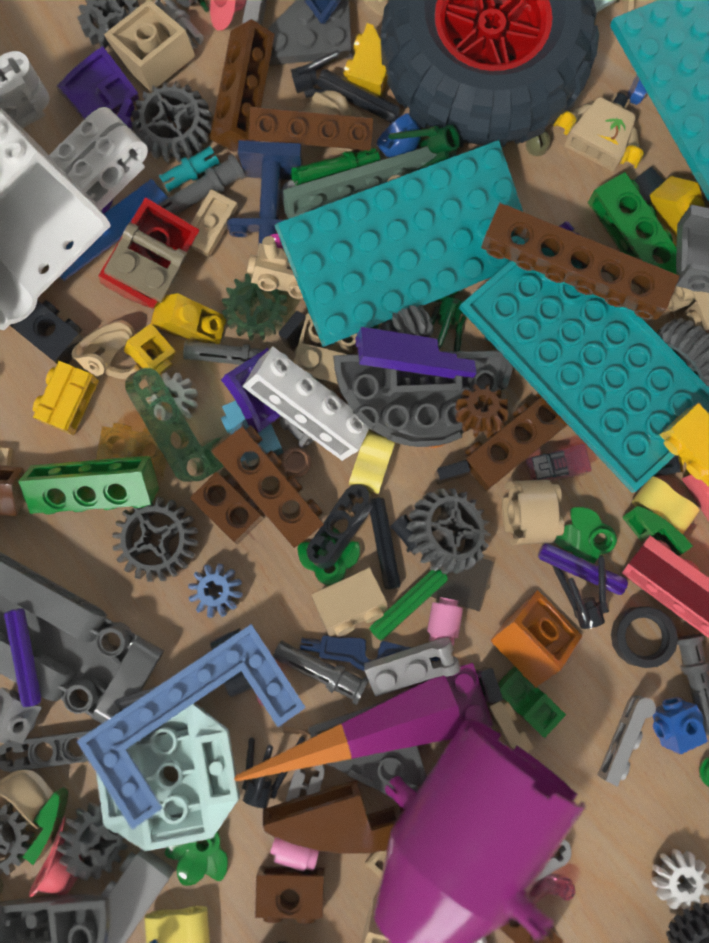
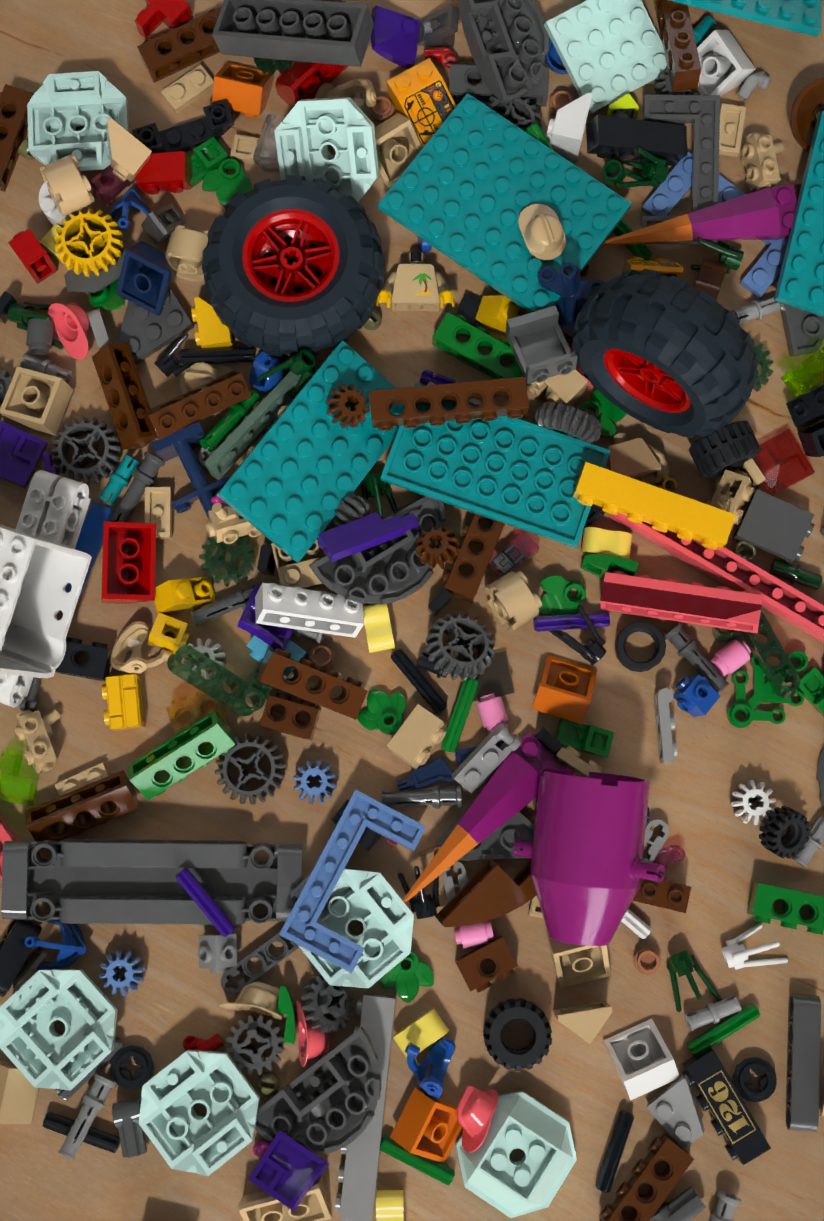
camera: 25 degrees left, 0 degrees up
(138, 270) = (132, 579): dark tan plate -> none
(342, 539) = (373, 677): black beam -> none
(477, 206) = (342, 397): none -> reddish brown gear

